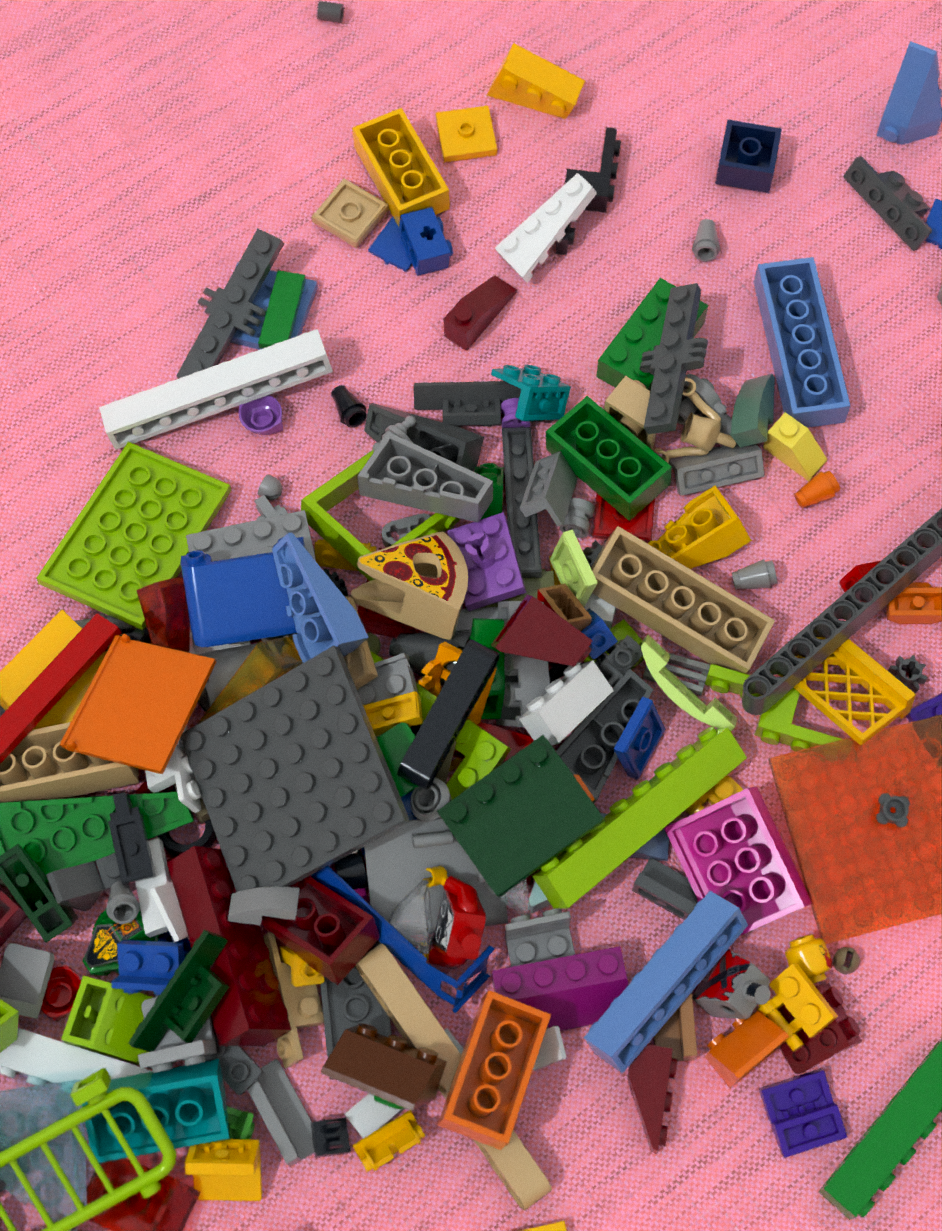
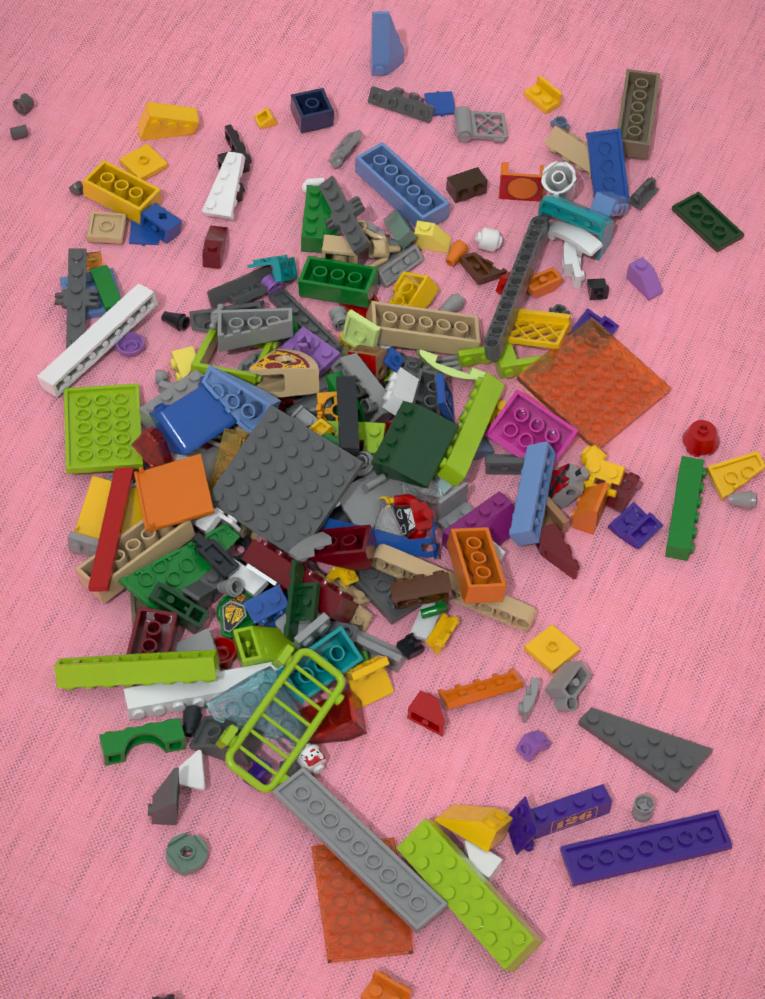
camera: 35 degrees left, 15 degrees down
(296, 257) = (94, 259): none -> clear yellow plate
(307, 479) = (182, 361): none -> light yellow slope
(346, 132) = (76, 188): none -> dark grey hinge
(542, 635) = (370, 361): dark red slope -> none
(550, 488) = (316, 306): light grey panel -> none
(679, 273) = (313, 182): none -> white arm
(680, 139) = (266, 118): none -> yellow slope
(706, 242) = (317, 162): light grey cone -> none
(758, 238) = (344, 148): none -> light grey hinge
(837, 534) = (479, 268): none -> reddish brown wing
(839, 959) = (609, 451): dark tan hinge -> none
(879, 491) = (488, 239): none -> white head
(899, 803) = (596, 368): dark grey plate -> none
(902, 382) = (466, 185): none -> dark brown brick

